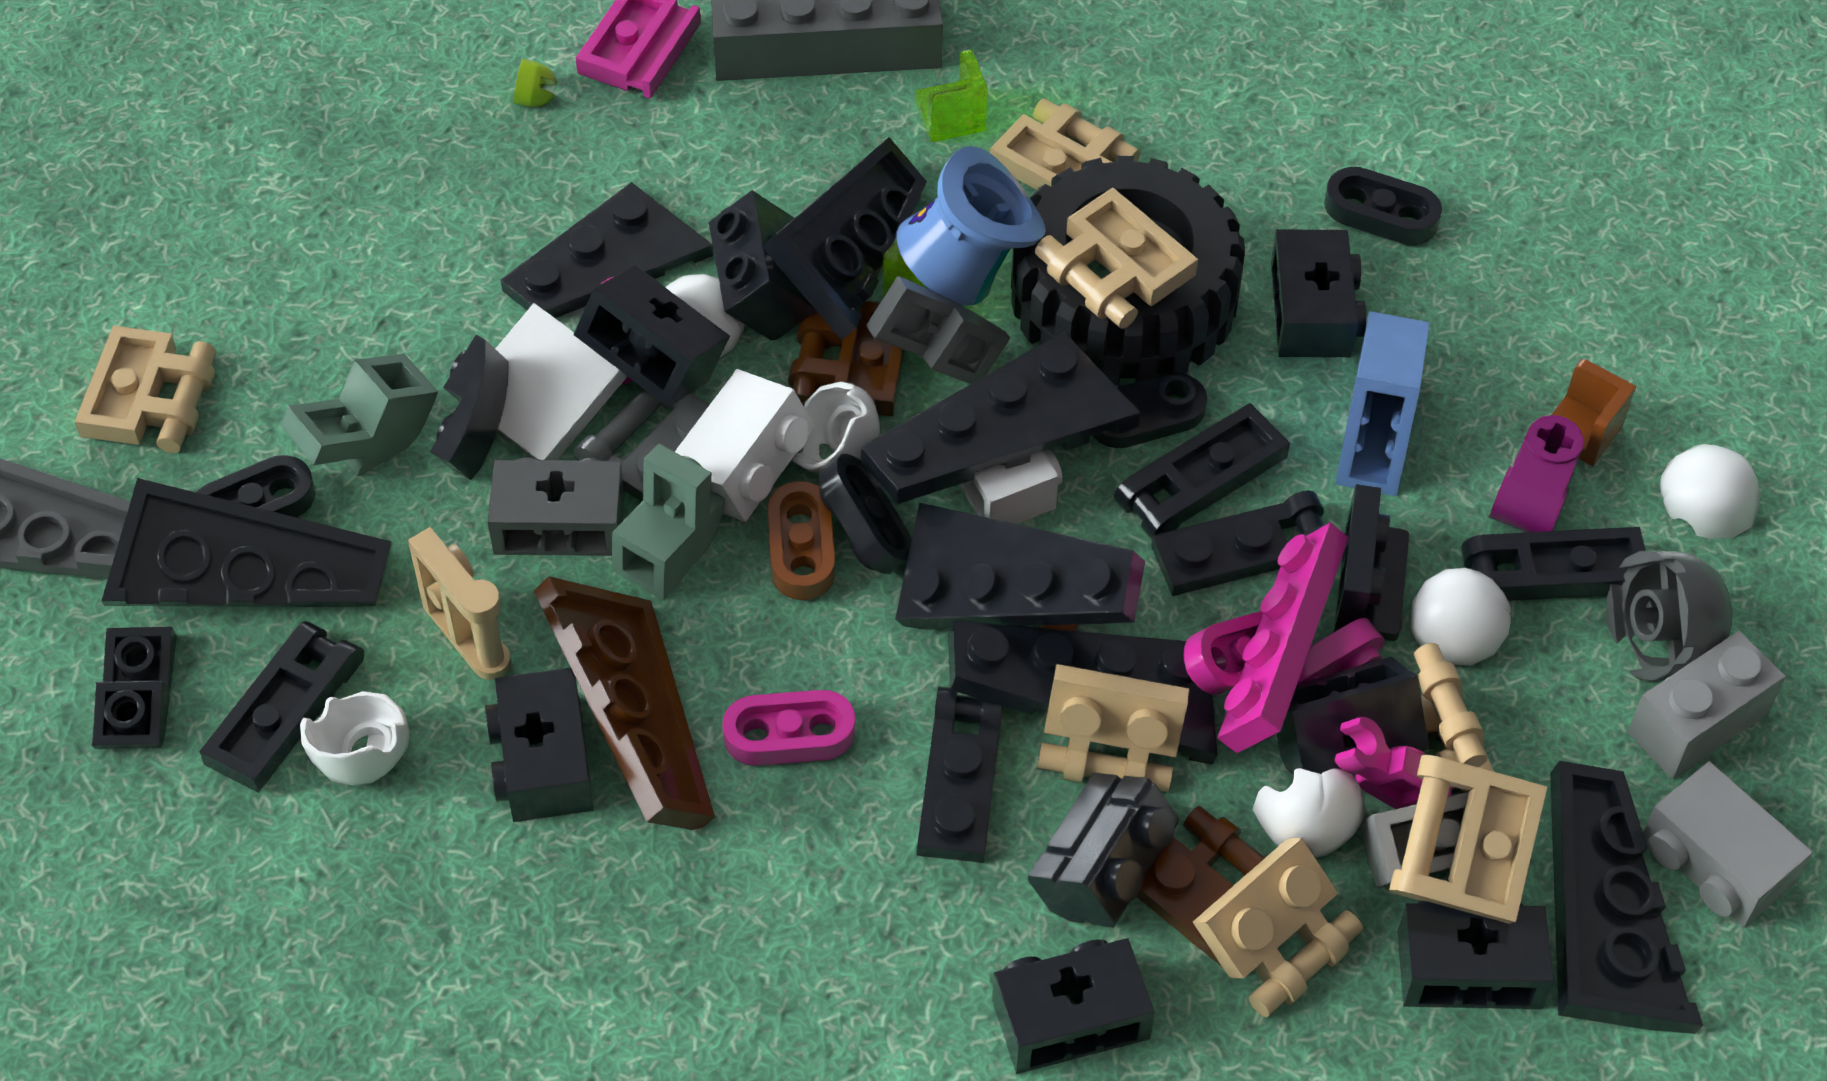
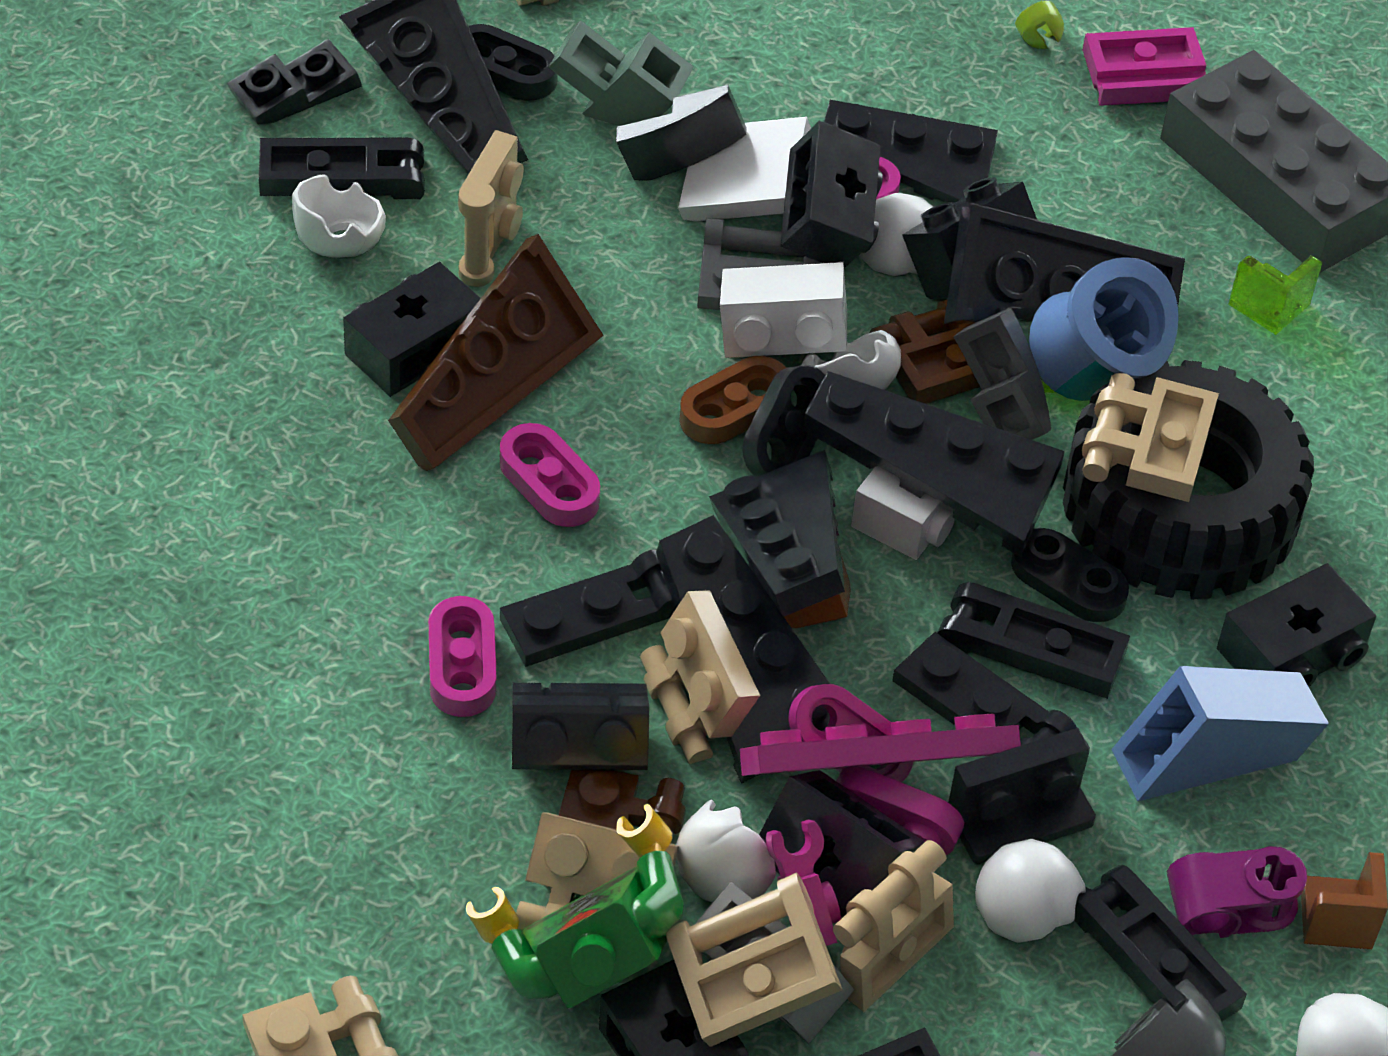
camera: 55 degrees right, 5 degrees down
(555, 506) = (638, 233): dark grey brick -> none
(669, 526) = (672, 307): sand green brick -> none
(956, 902) = (462, 658): none -> dark pink plate
(1041, 151) = (1287, 375): tan plate -> none
(1043, 1024) = (419, 773): black brick -> none
(1360, 949) = (597, 935): none -> green torso

